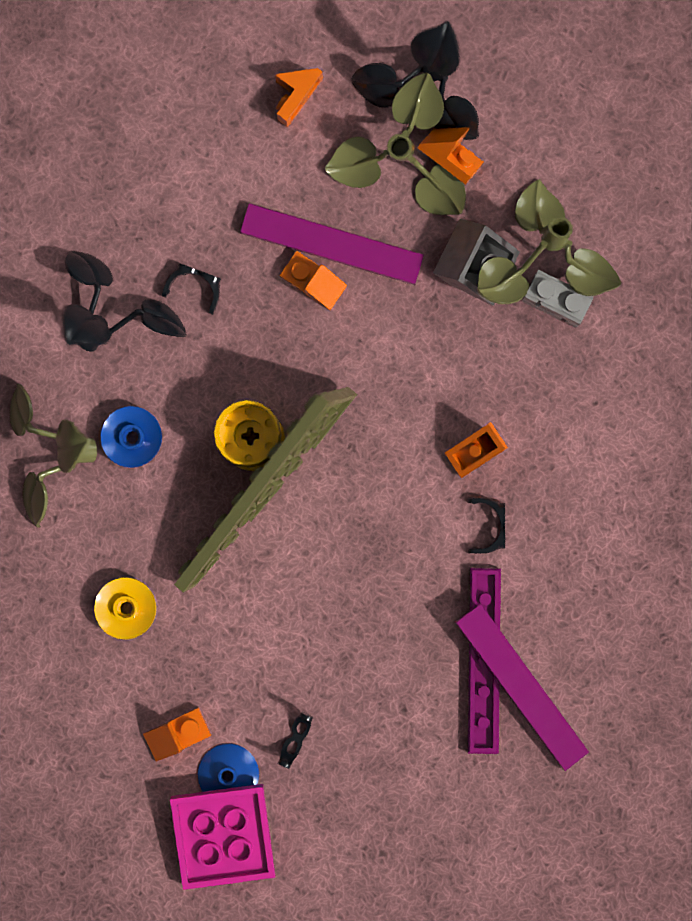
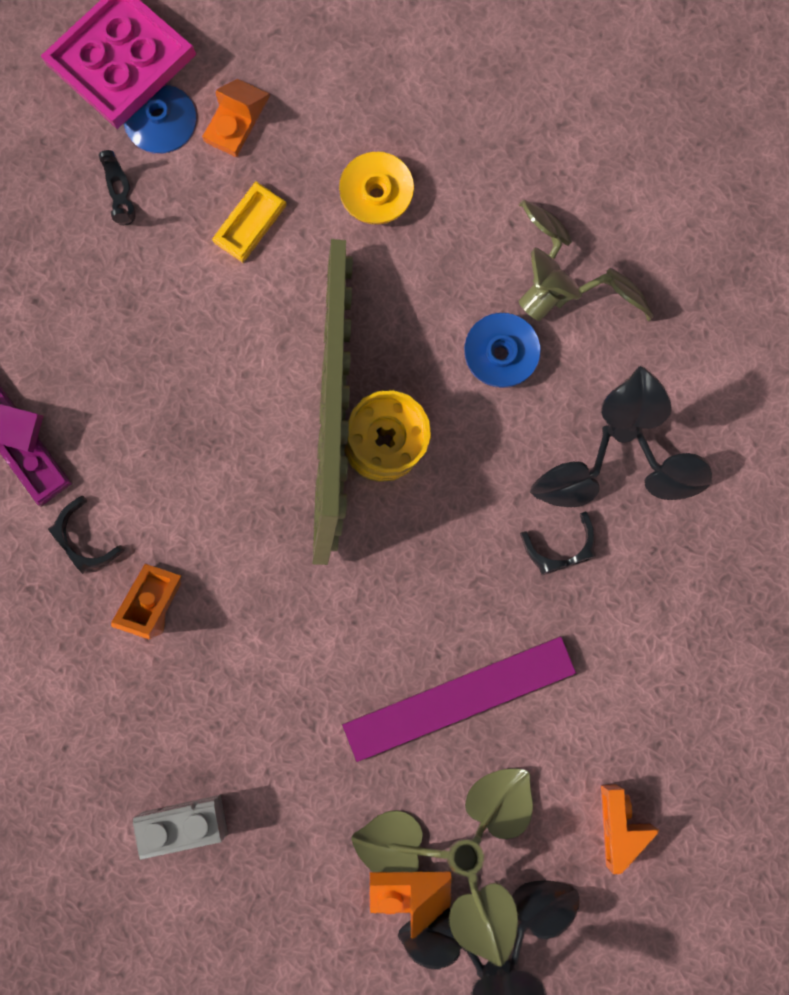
camera: 140 degrees right, 5 degrees down
(224, 653) = (249, 222): none -> yellow tile
(313, 280) = (448, 646): orange slope -> none
(467, 252) = (297, 799): flat silver slope -> none
(539, 209) = (270, 909): olive plant -> none

